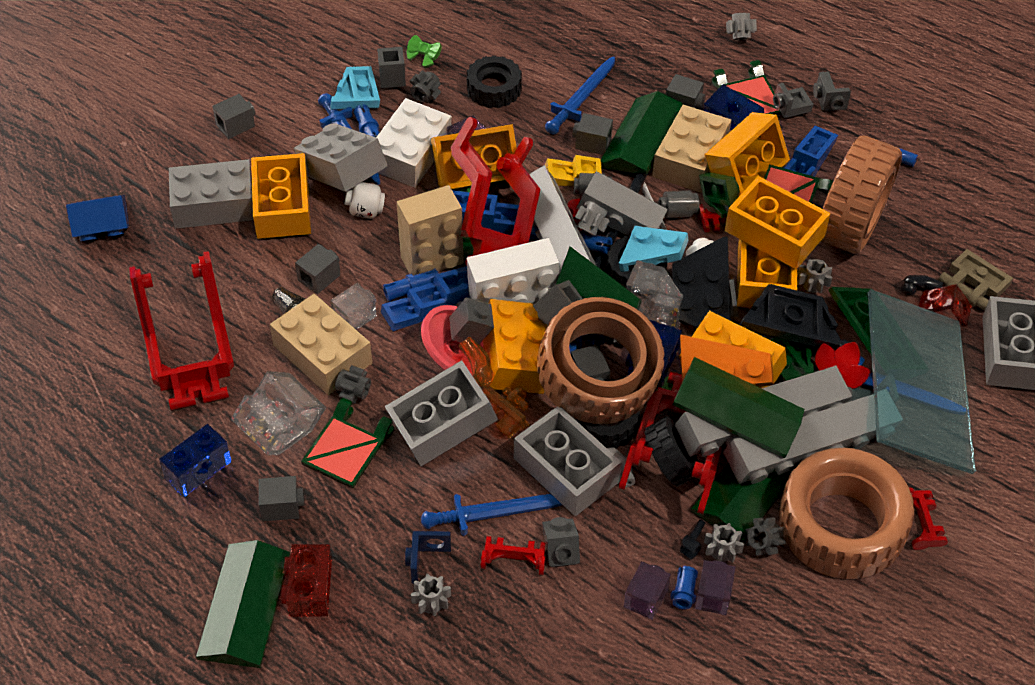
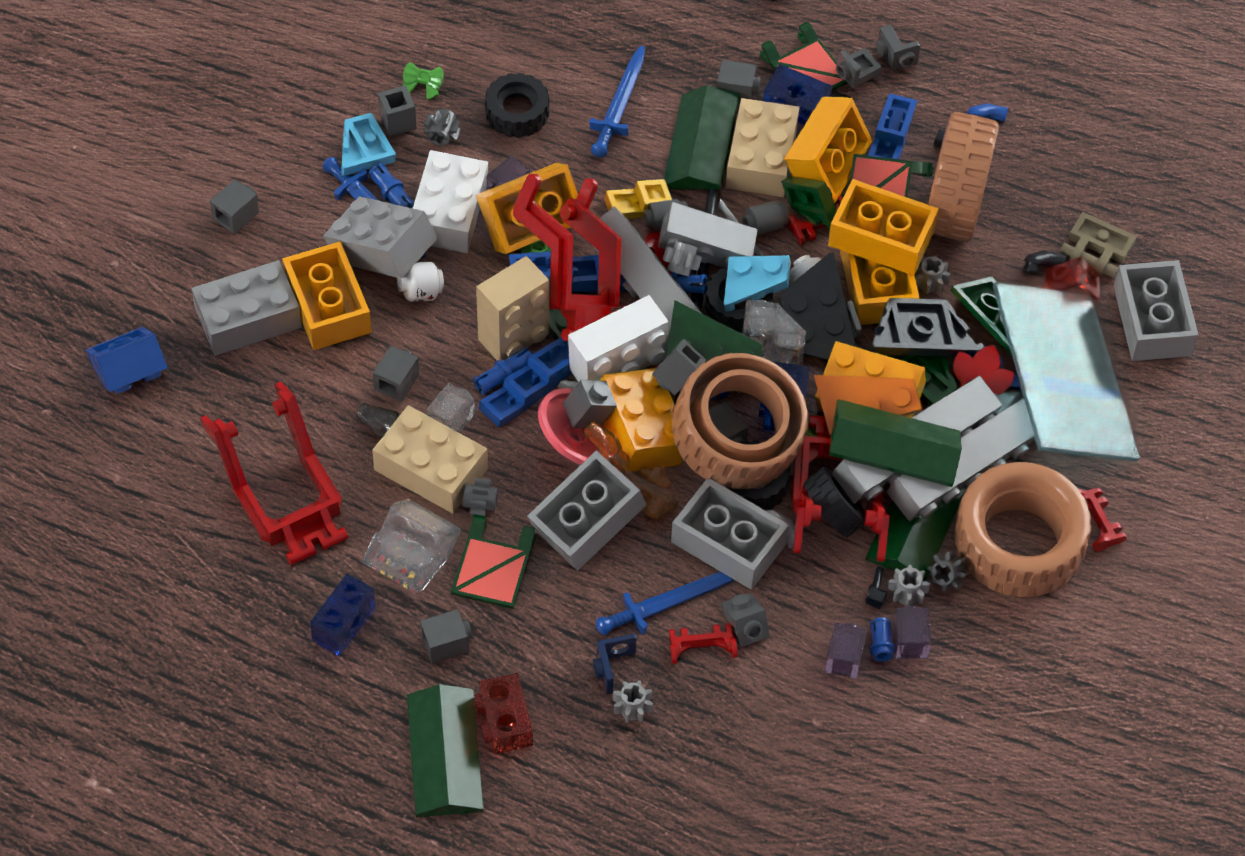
camera: 15 degrees left, 5 degrees up
(593, 133) = (648, 150): dark grey brick -> none

